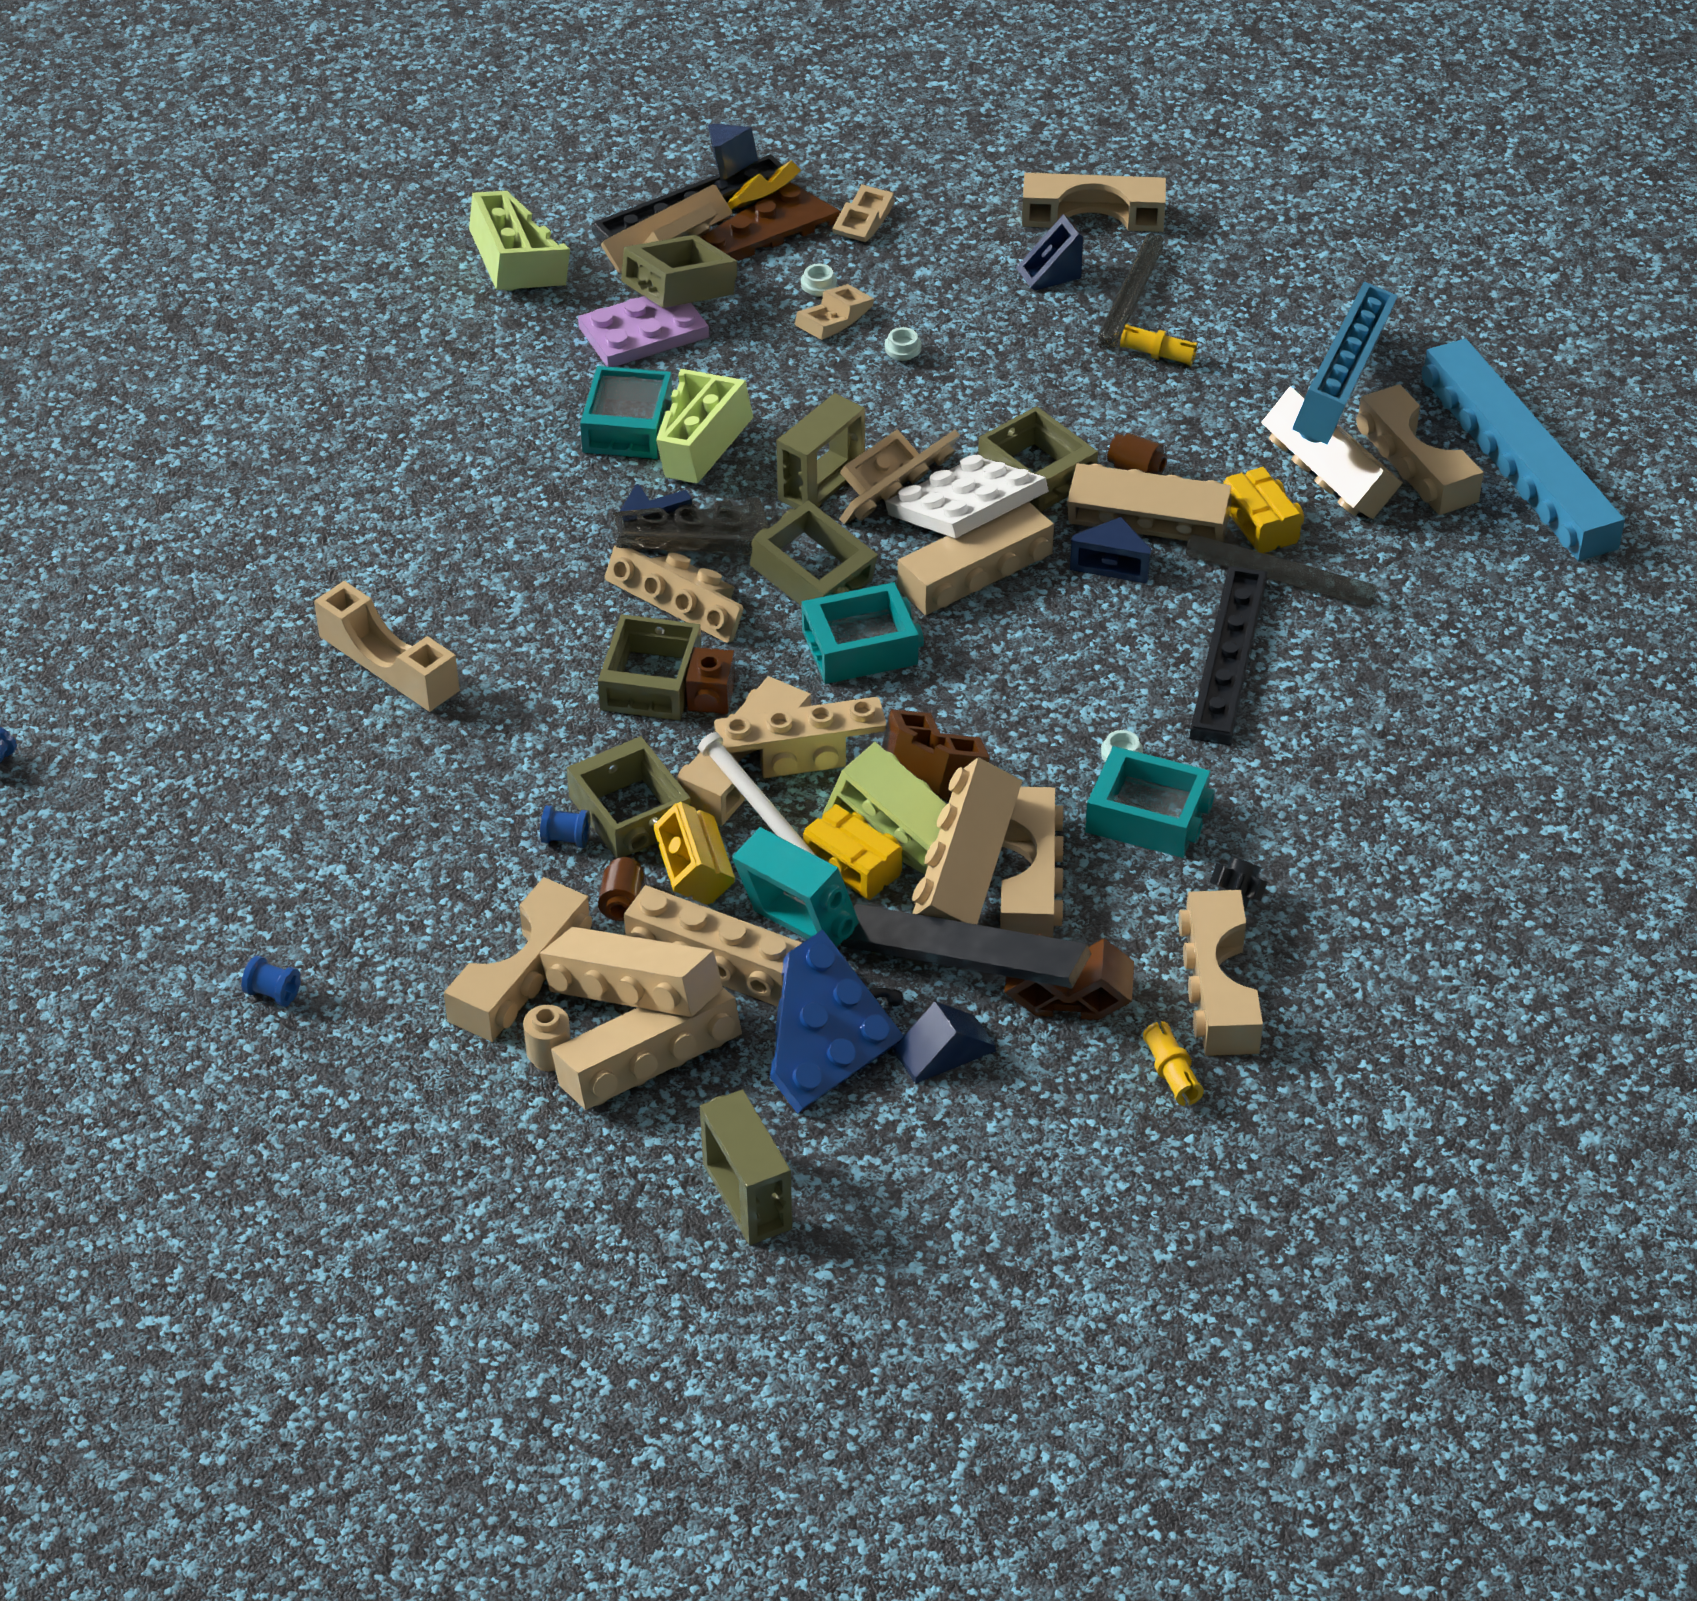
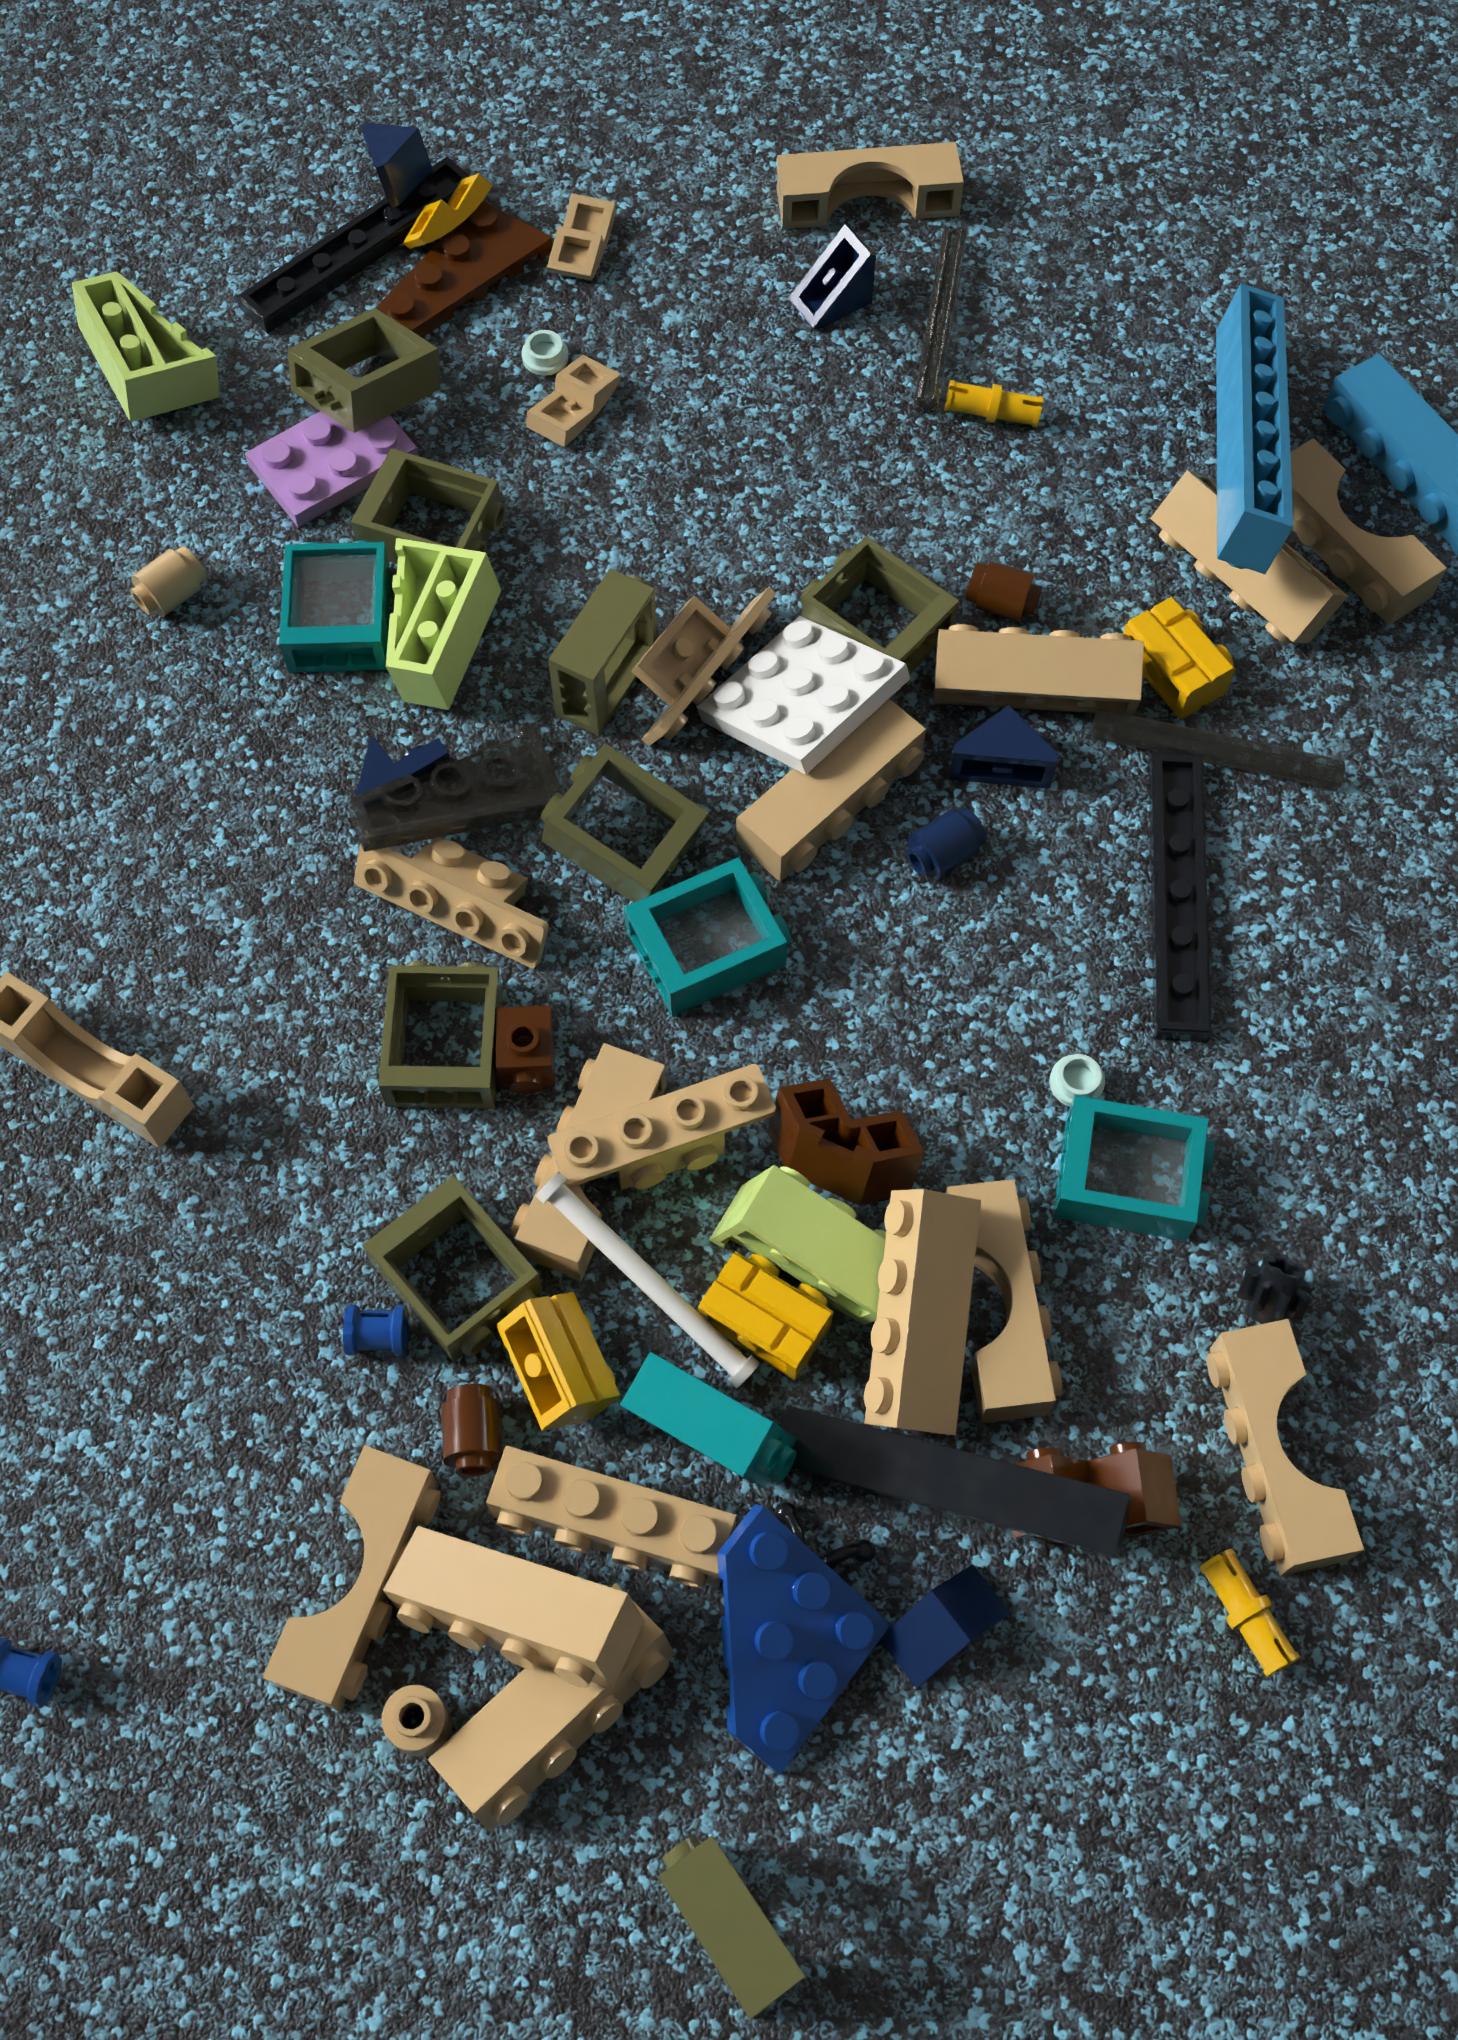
camera: 10 degrees left, 20 degrees up
(504, 384) = (167, 581): none -> tan brick
(684, 218) = (338, 292): tan bracket -> none
(705, 341) = (407, 474): none -> olive window
(903, 344) = (671, 444): light aqua plate -> none
(1055, 599) = (945, 843): none -> dark blue brick

